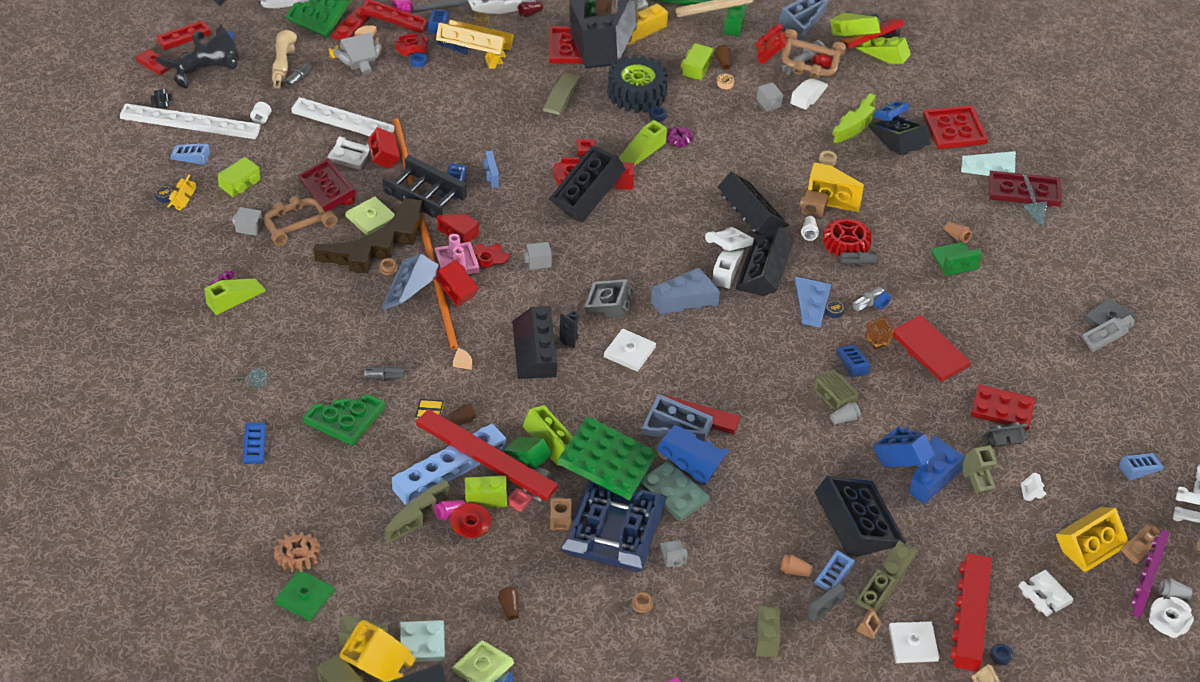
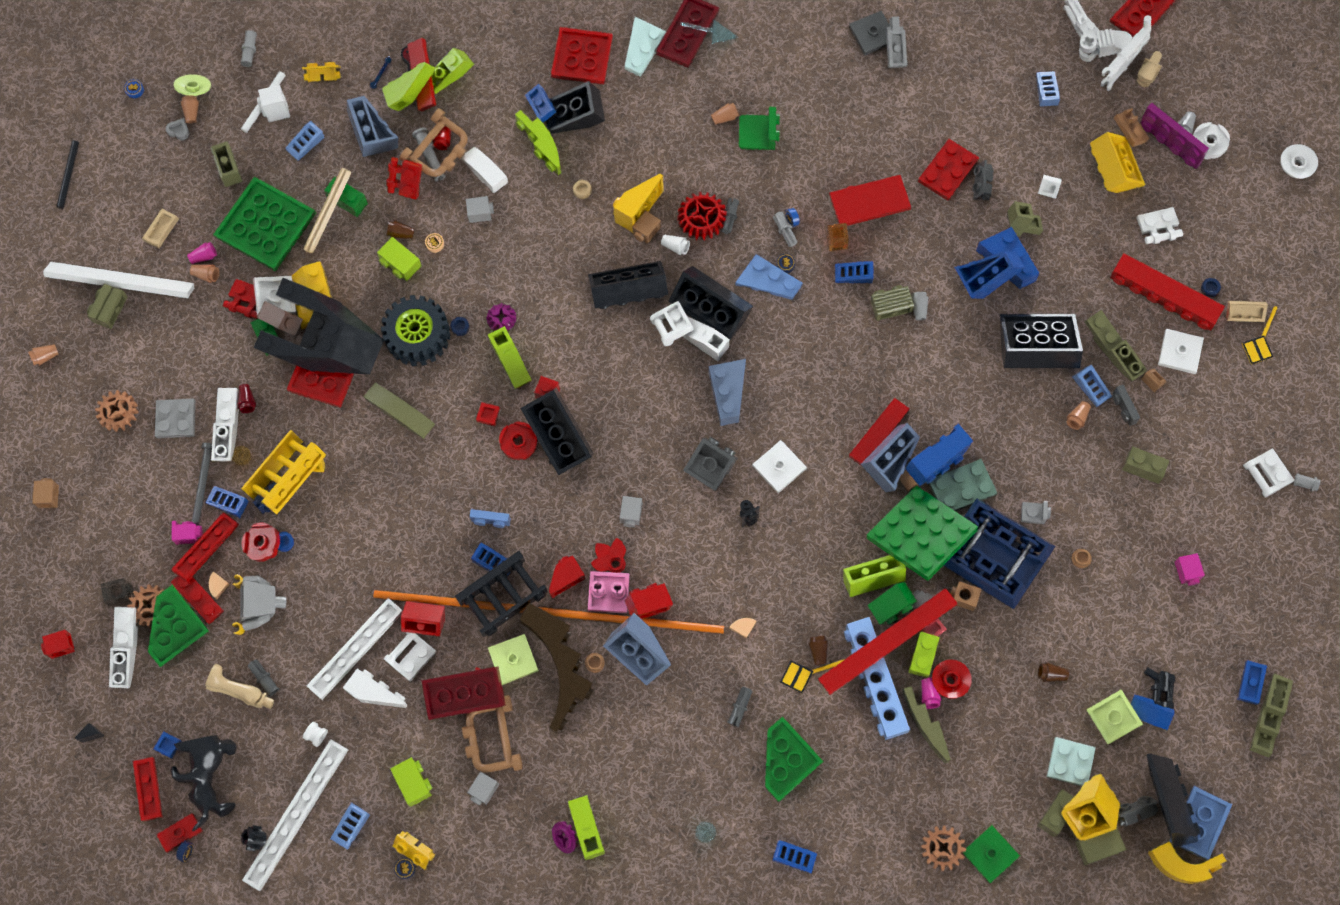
camera: 65 degrees left, 25 degrees up
(139, 66) = (184, 851): none -> dark blue tile
(310, 132) = (369, 691): none -> white slope
(535, 344) = (748, 552): black slope -> none

